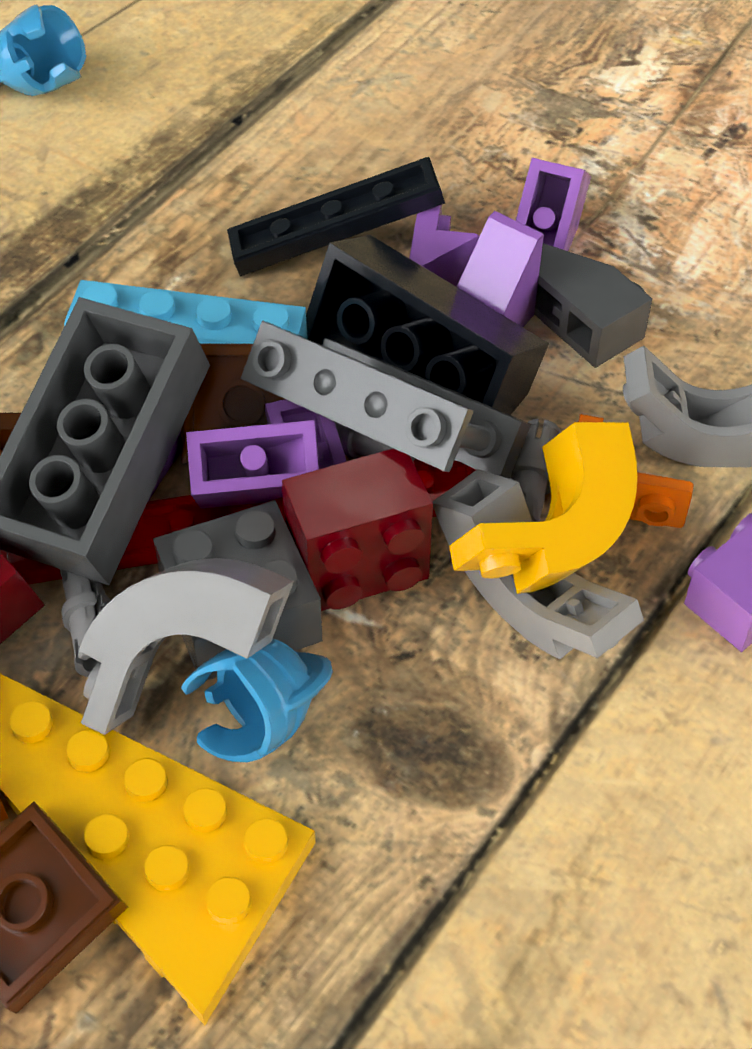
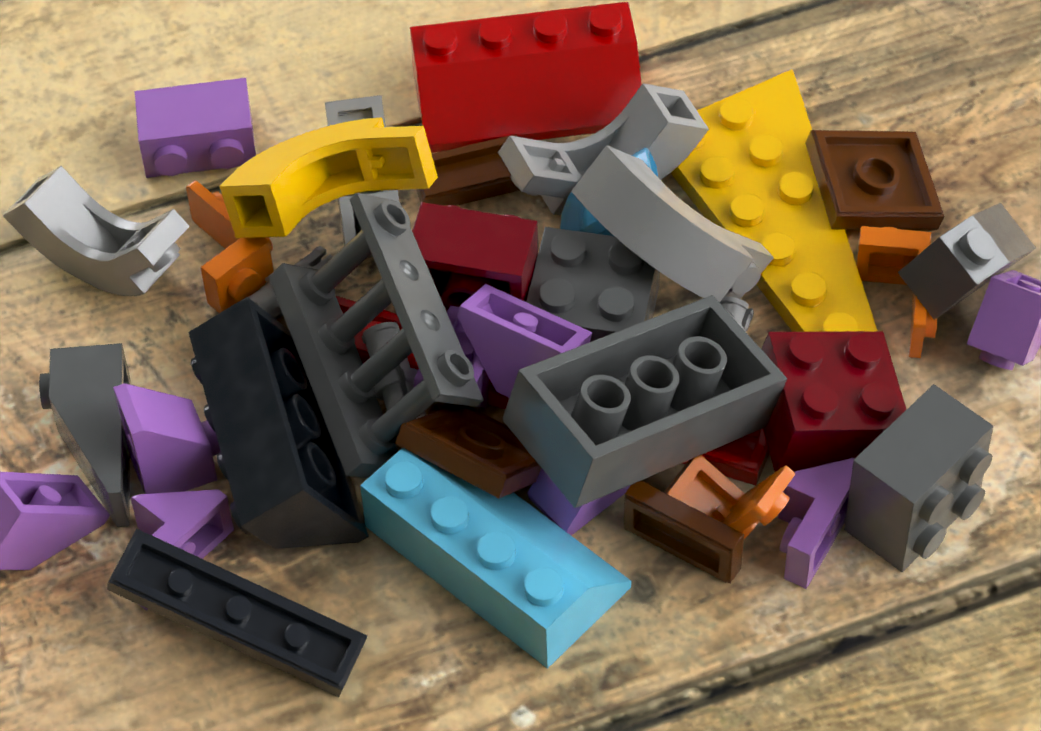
camera: 145 degrees left, 0 degrees up
(315, 767) = (653, 119): none -> light grey arch
(468, 693) = (469, 174): none -> reddish brown tile
(492, 823) = (525, 74): none -> red slope

